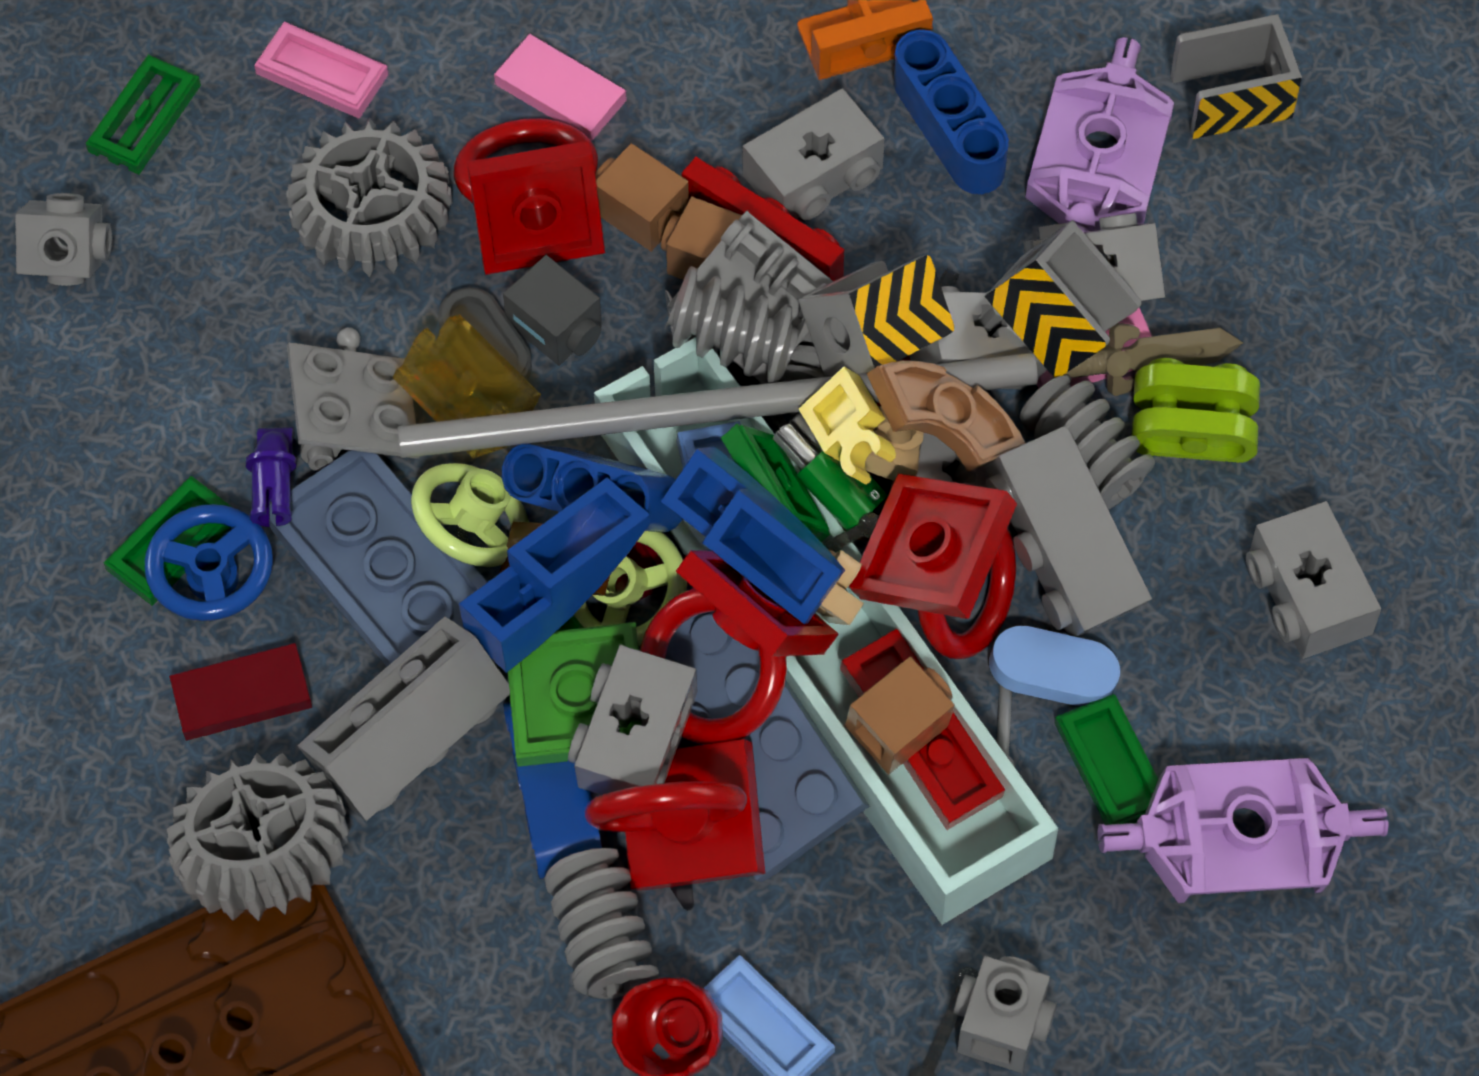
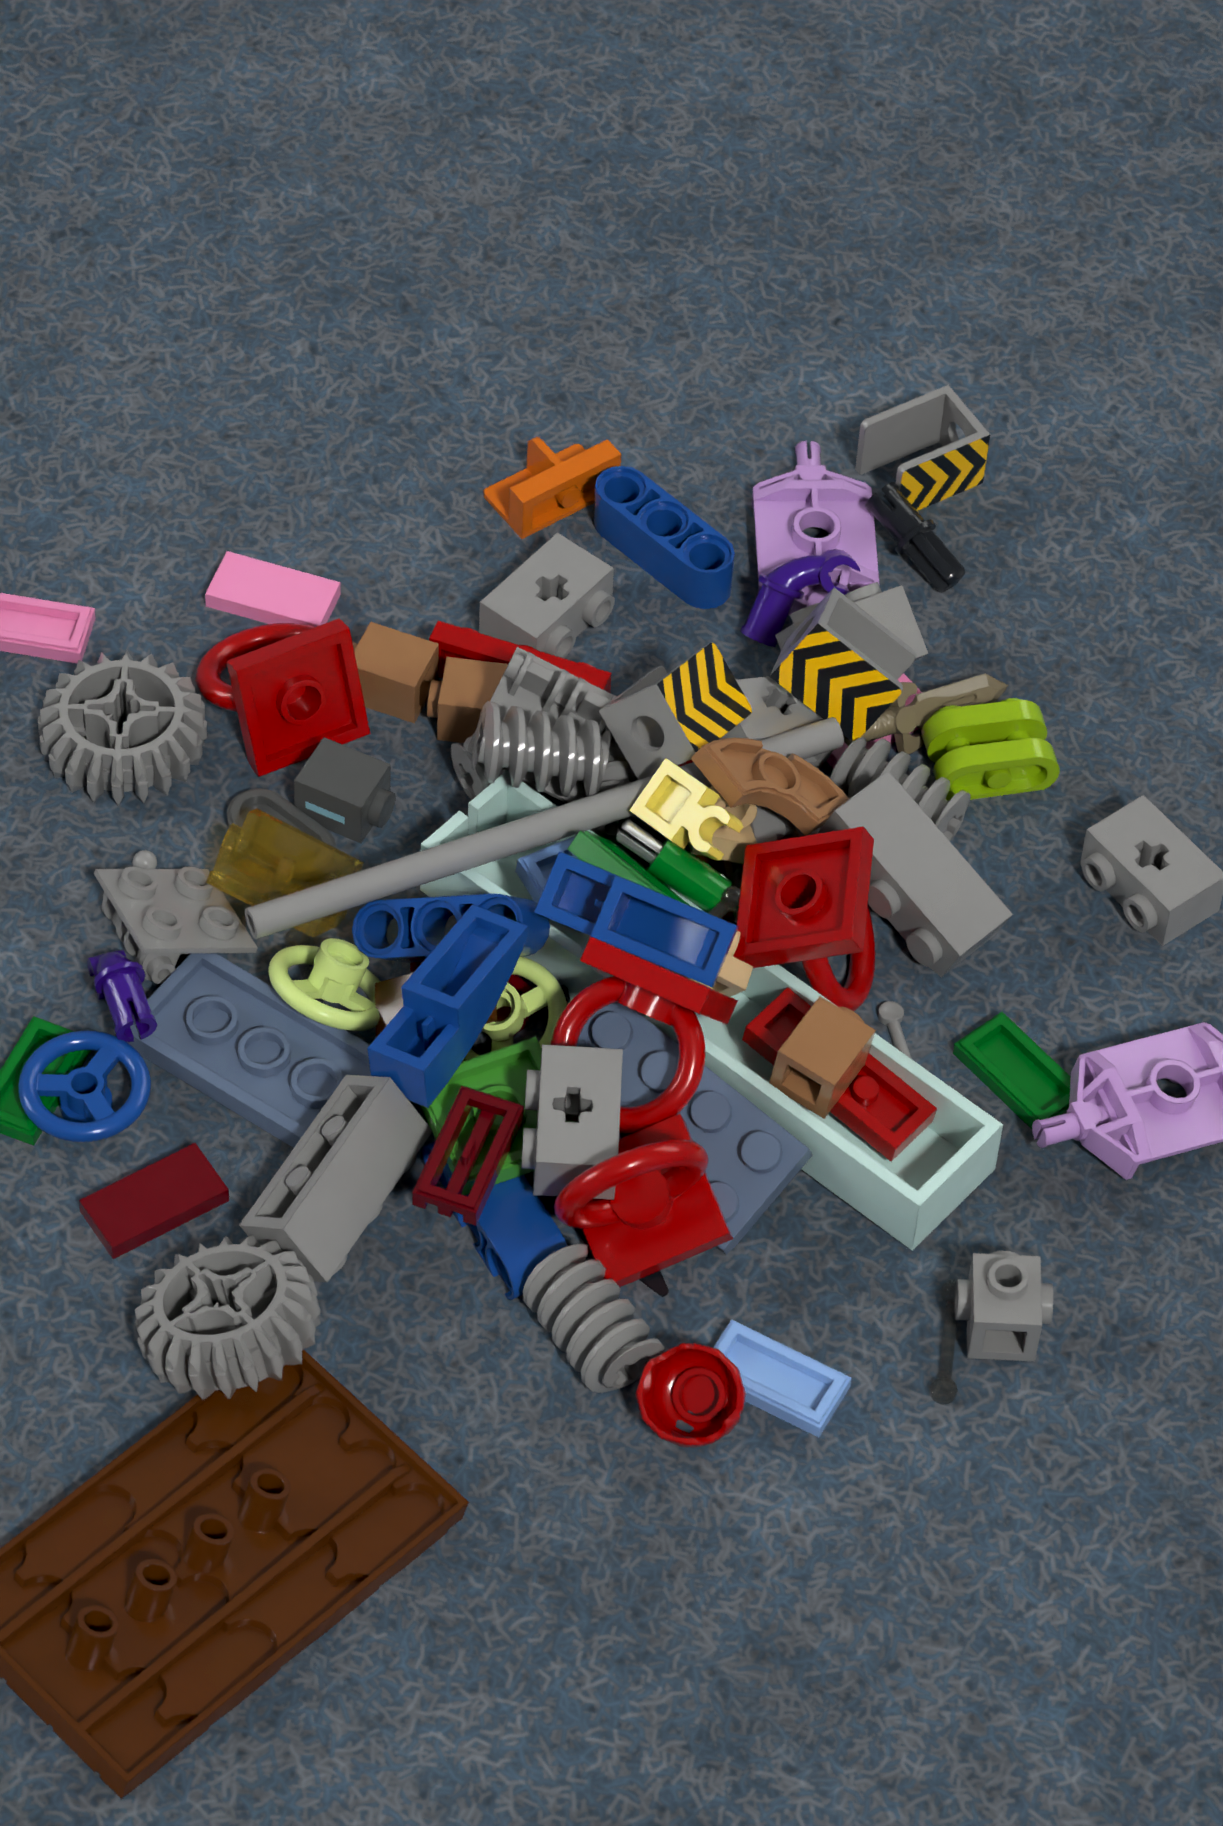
camera: 20 degrees left, 10 degrees down
(494, 776) = (451, 1198): none -> dark red tile
(1048, 193) = (785, 585): none -> dark purple piece
(1053, 666) = (936, 1000): light blue tile -> none
(1199, 167) = (916, 538): none -> black axle

